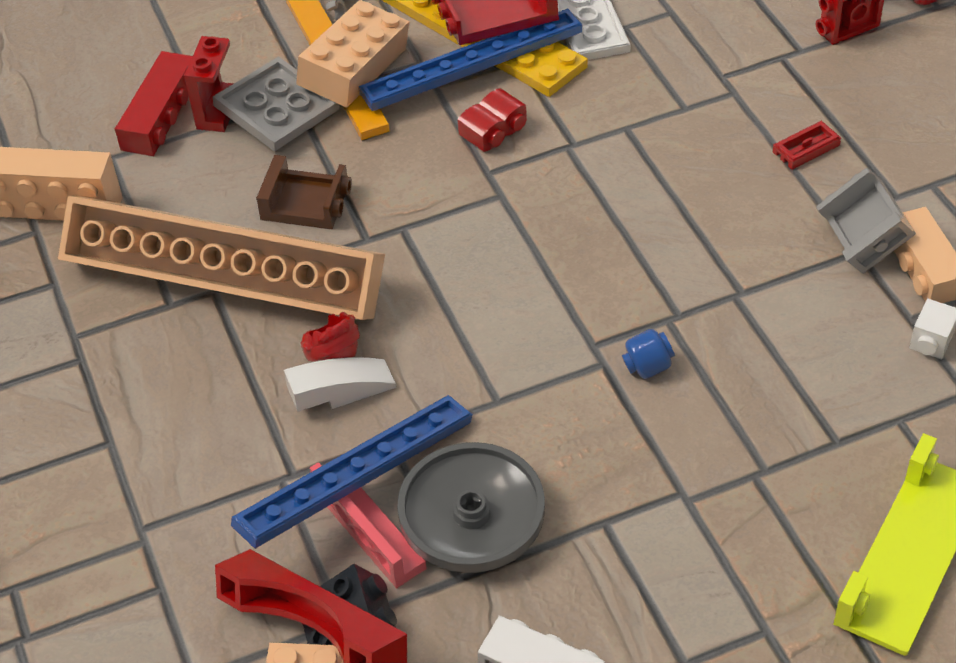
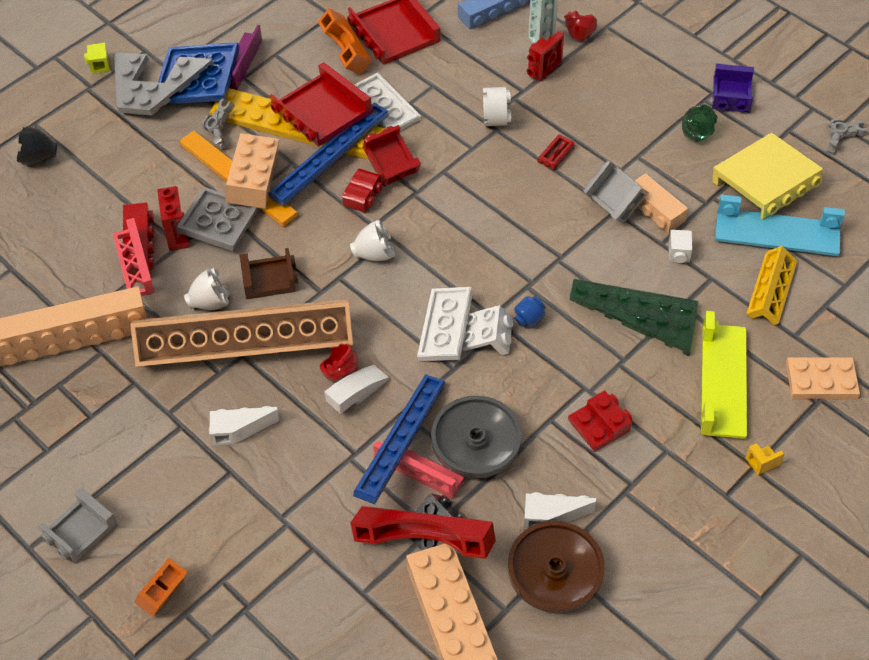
camera: 25 degrees left, 5 degrees up
(138, 121) = (139, 257): none -> coral fence
(150, 380) = (238, 424): none -> white slope
(209, 191) = (207, 292): none -> white piece
(469, 192) = (373, 243): none -> white piece
(514, 334) = (445, 324): none -> white tile
(555, 83) = (390, 155): none -> red panel
(577, 358) = (489, 327): none -> white bracket
(680, 549) = (601, 420): none -> red plate
(741, 56) = (496, 106): none -> white brick
(837, 415) = (645, 312): none -> clear green wing

